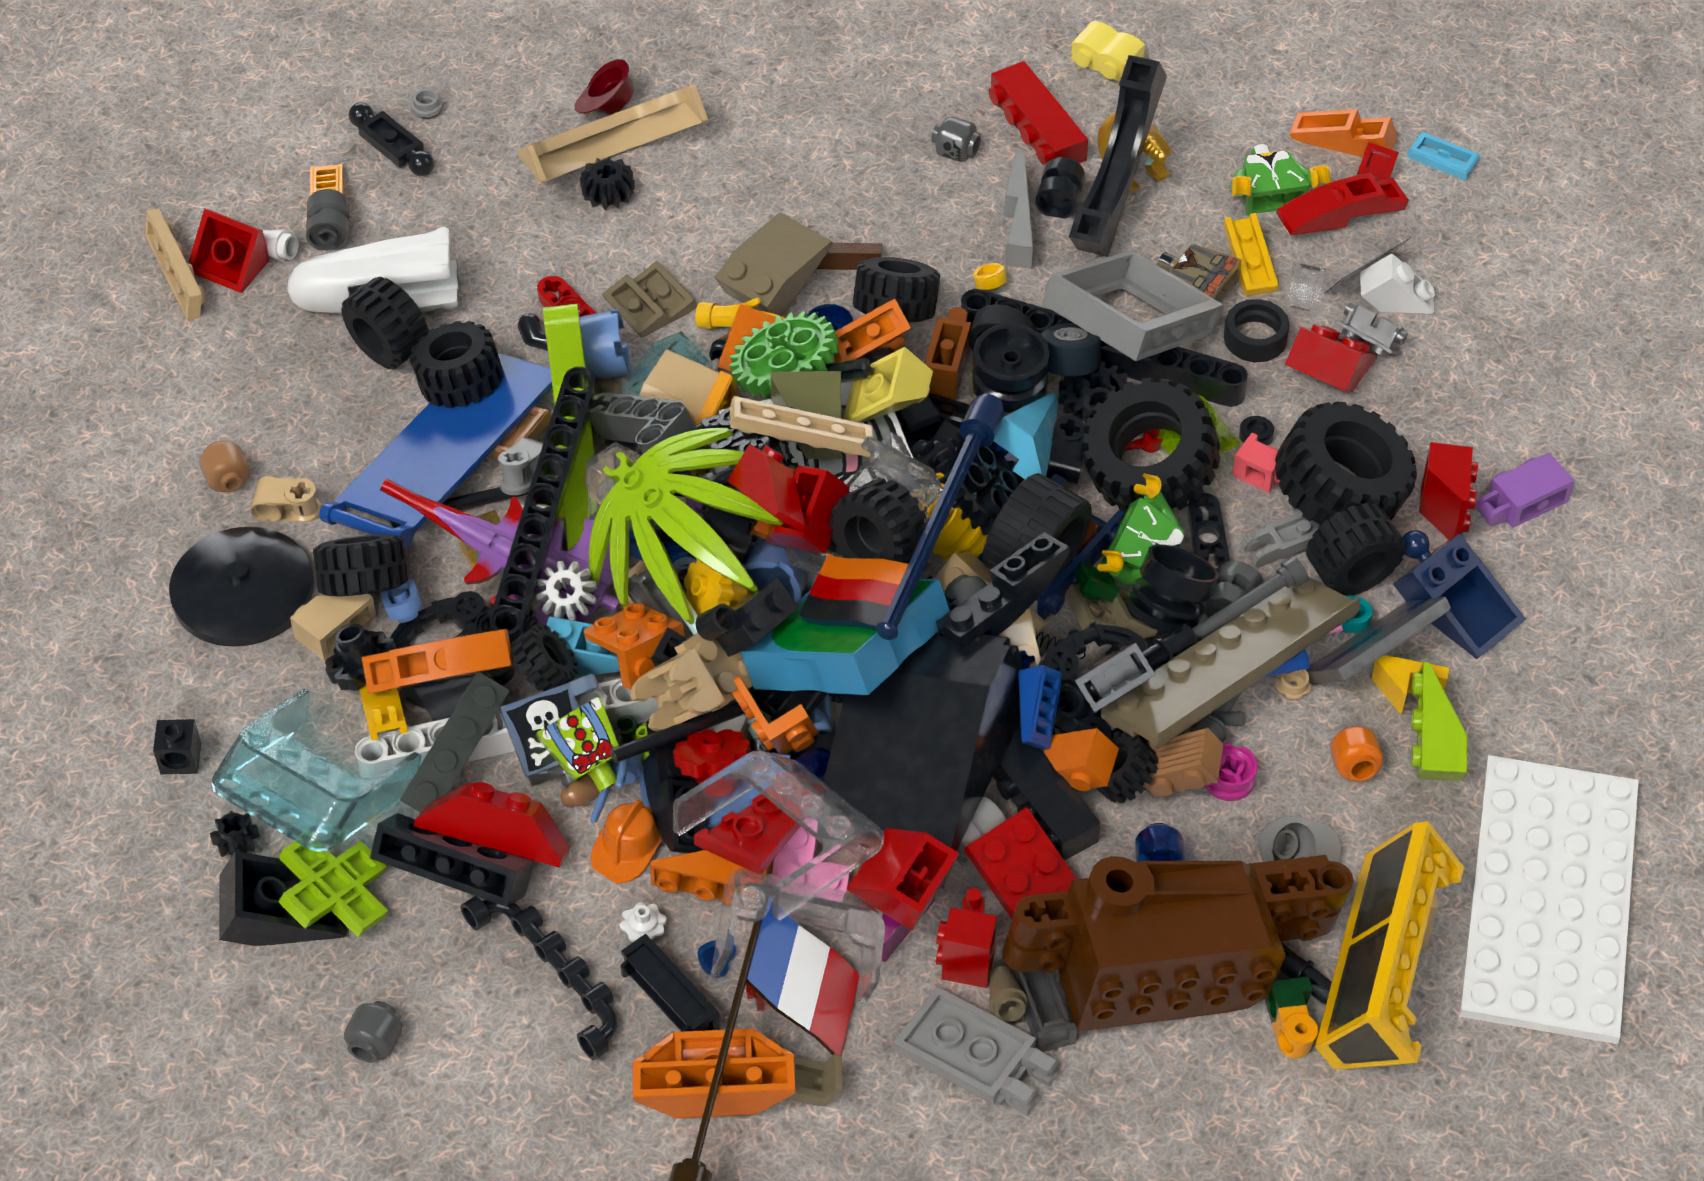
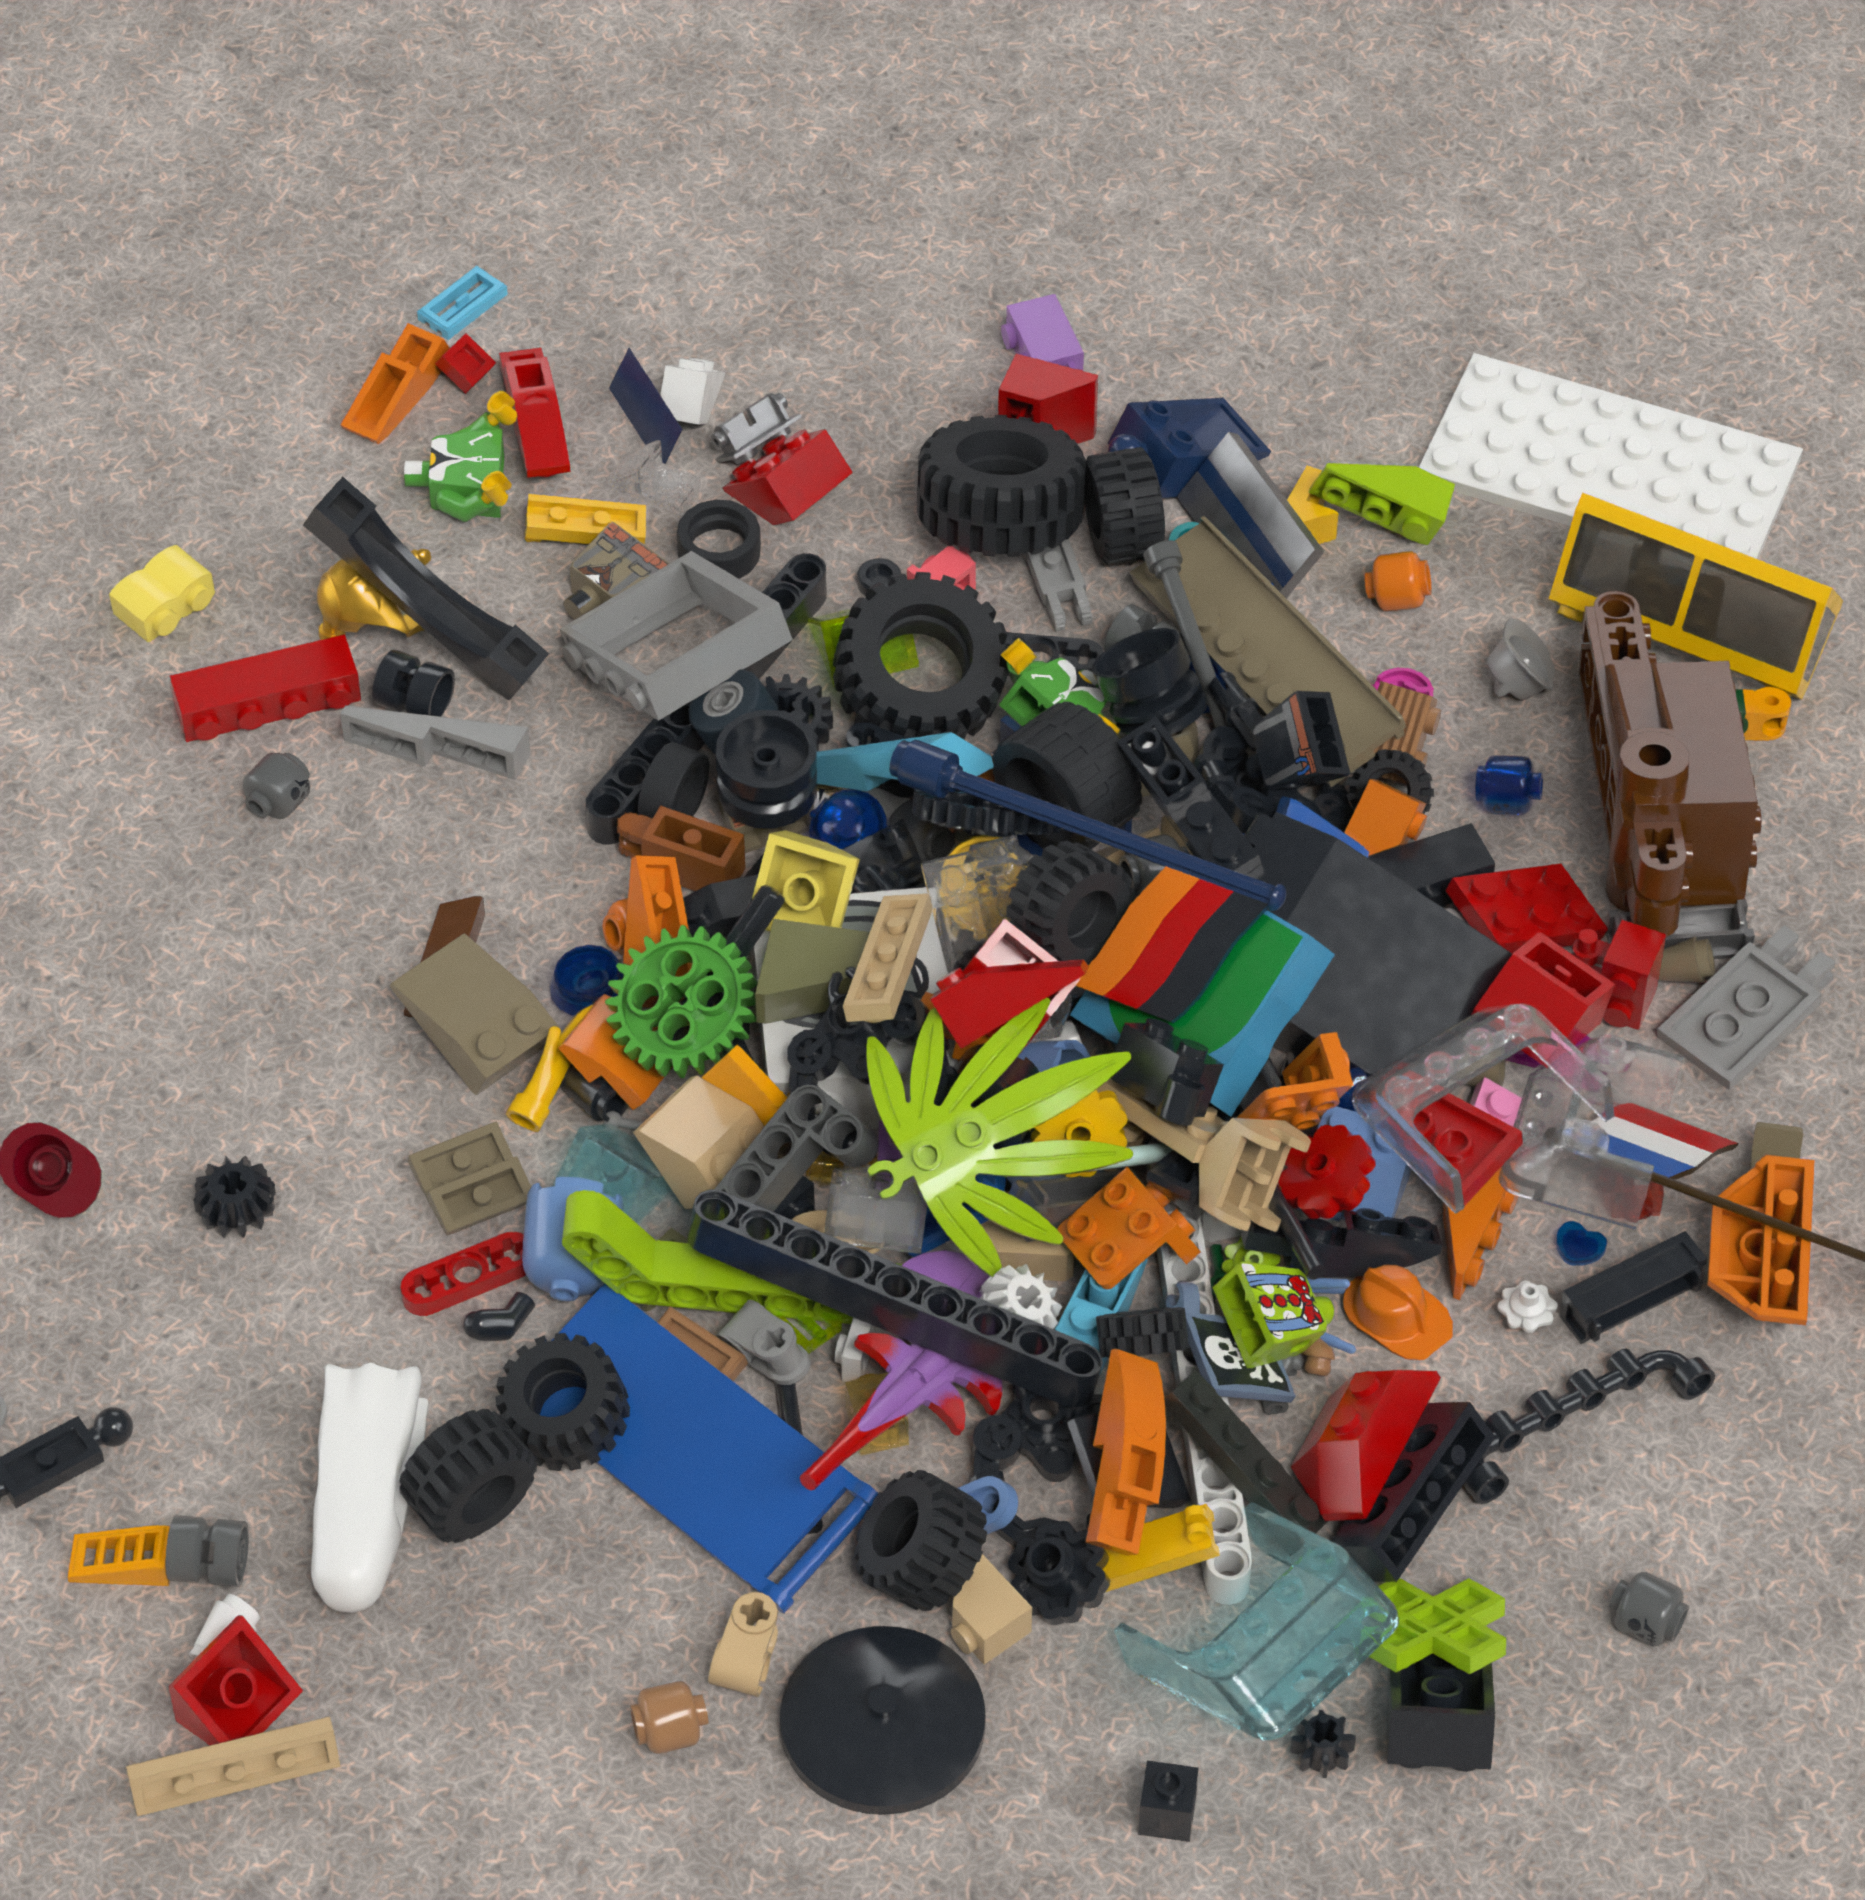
camera: 80 degrees left, 0 degrees up
(614, 134) = (132, 1208): tan windscreen -> none
(906, 280) = (568, 880): black tyre -> none
(990, 276) = (543, 793): yellow tile -> none

